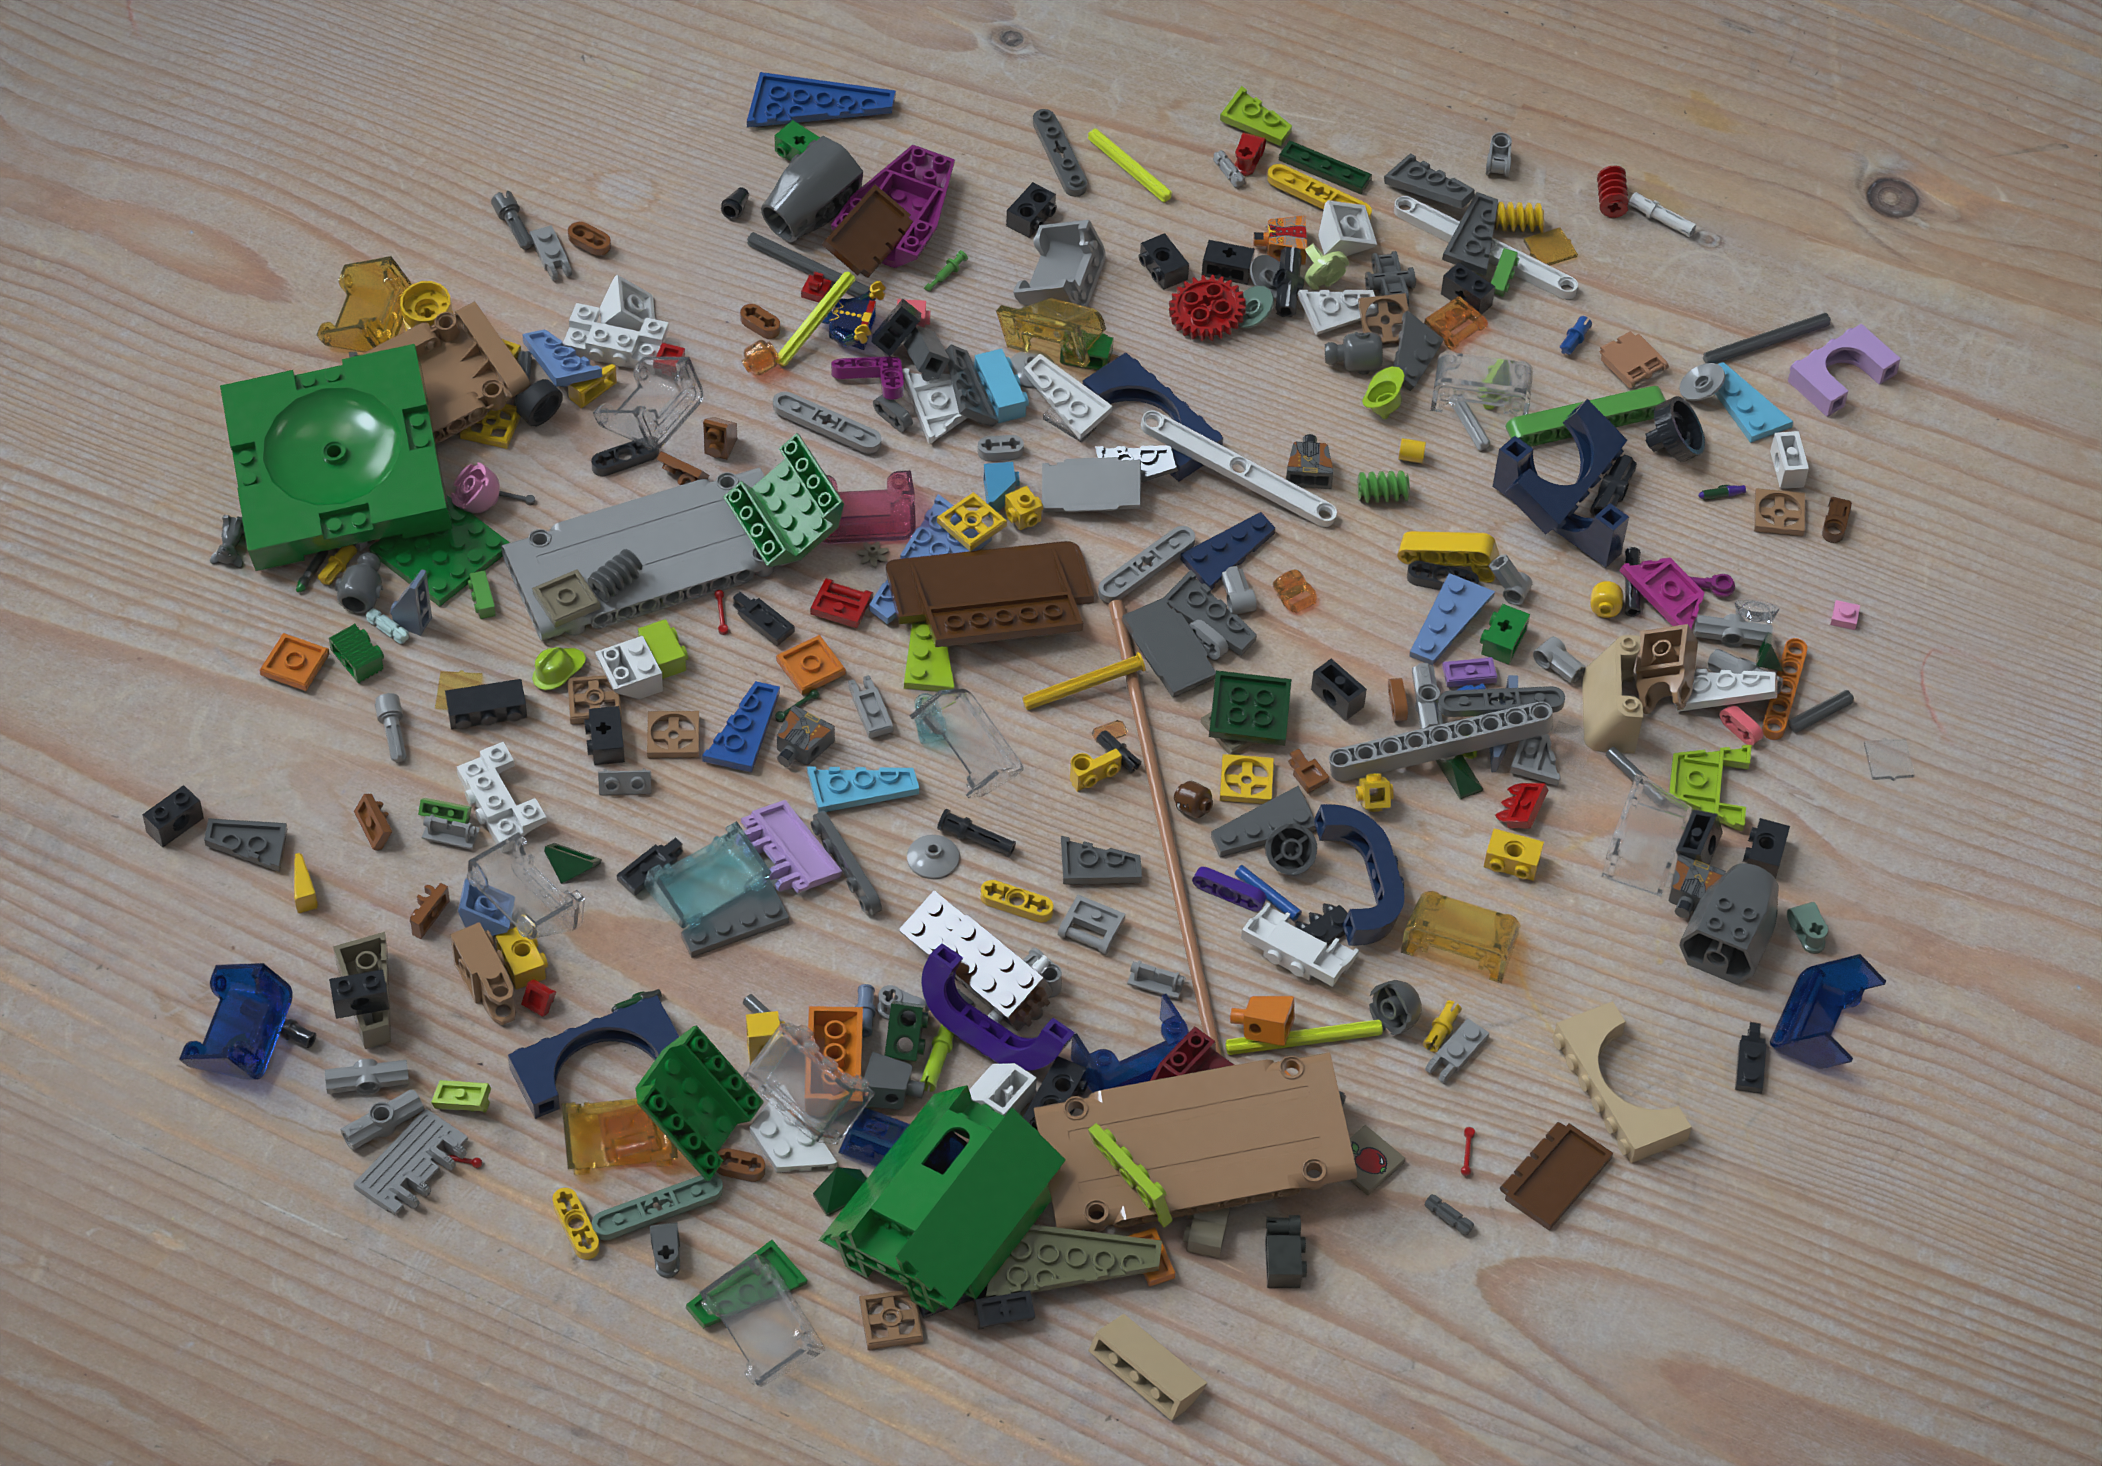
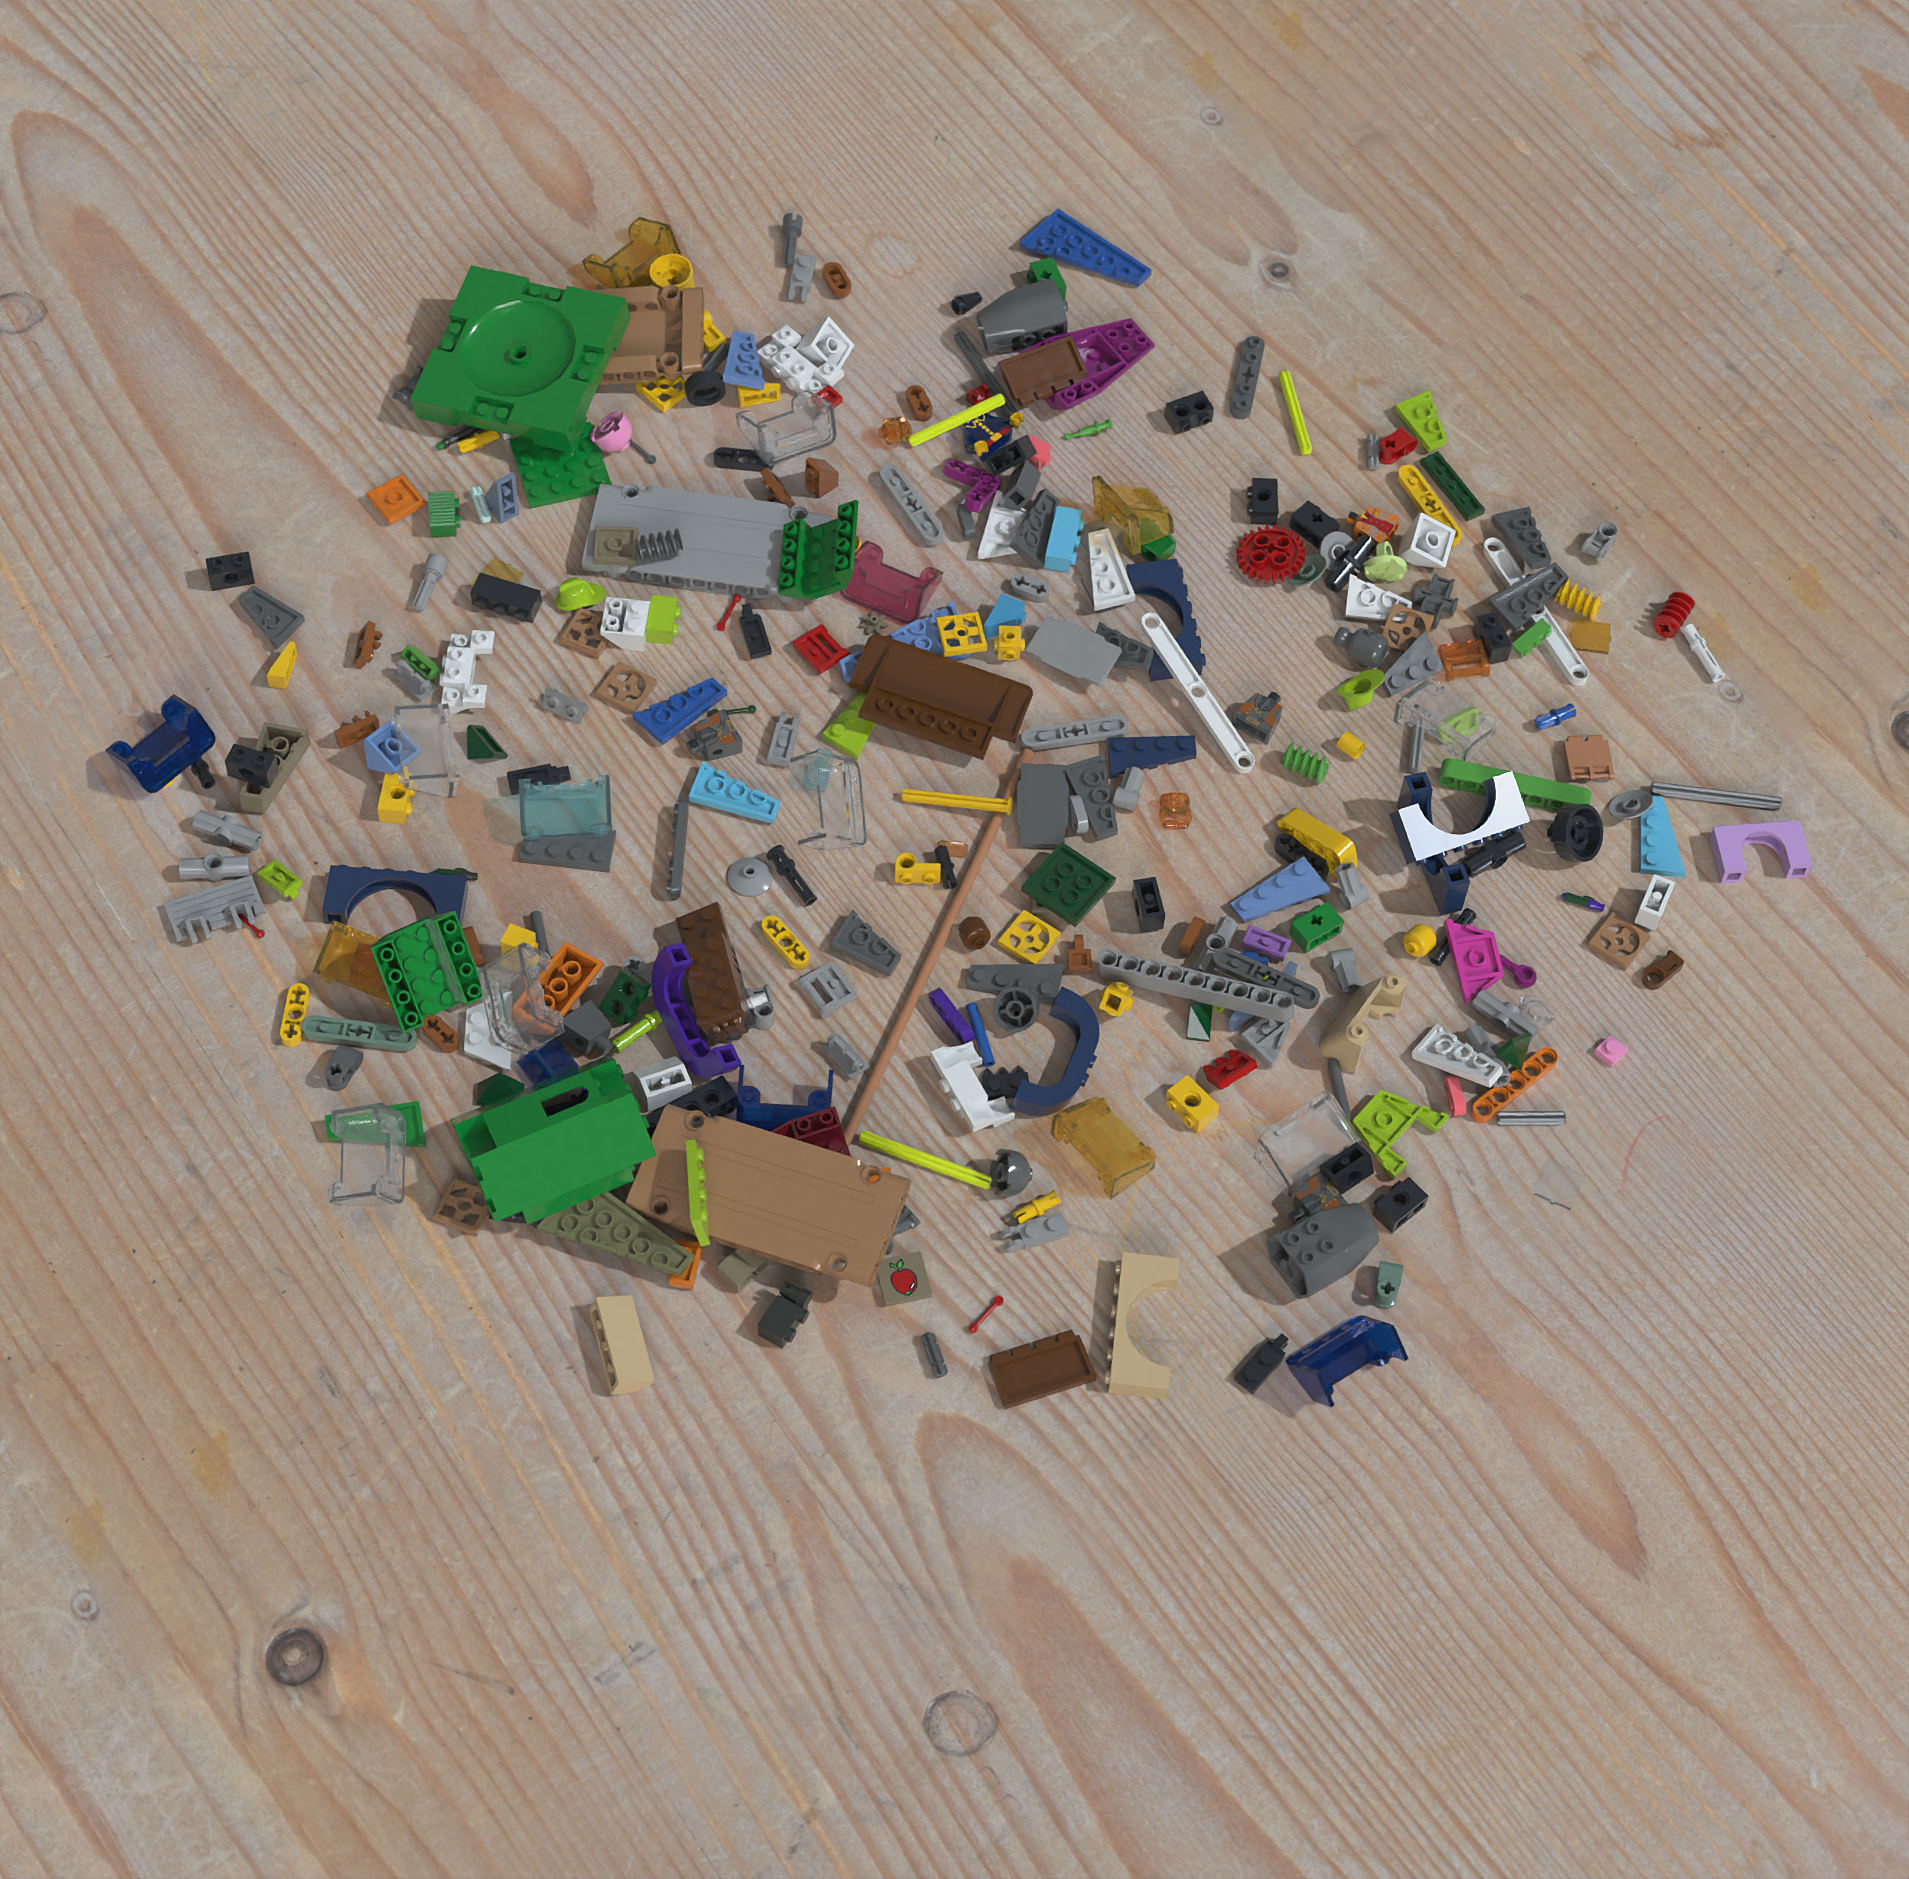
camera: 30 degrees right, 5 degrees up
(360, 584) = (480, 463): dark grey piece -> none
(481, 594) = (564, 514): bright green piece -> none
(483, 970) = (358, 794): medium nougat brick -> none
(538, 997) = (387, 835): red tile -> none
(606, 735) = (575, 664): black brick -> none
(786, 838) = (650, 809): lavender hinge -> none
(810, 664) = (764, 685): orange plate -> none
(866, 1000) = (612, 967): sand blue pin -> none
(1004, 1309) = (546, 1244): black hinge -> none
(1067, 264) = (1183, 473): light grey windscreen -> none
(1266, 1018) = (903, 1130): orange torso -> none
(1666, 666) = (1422, 1017): medium nougat brick -> none

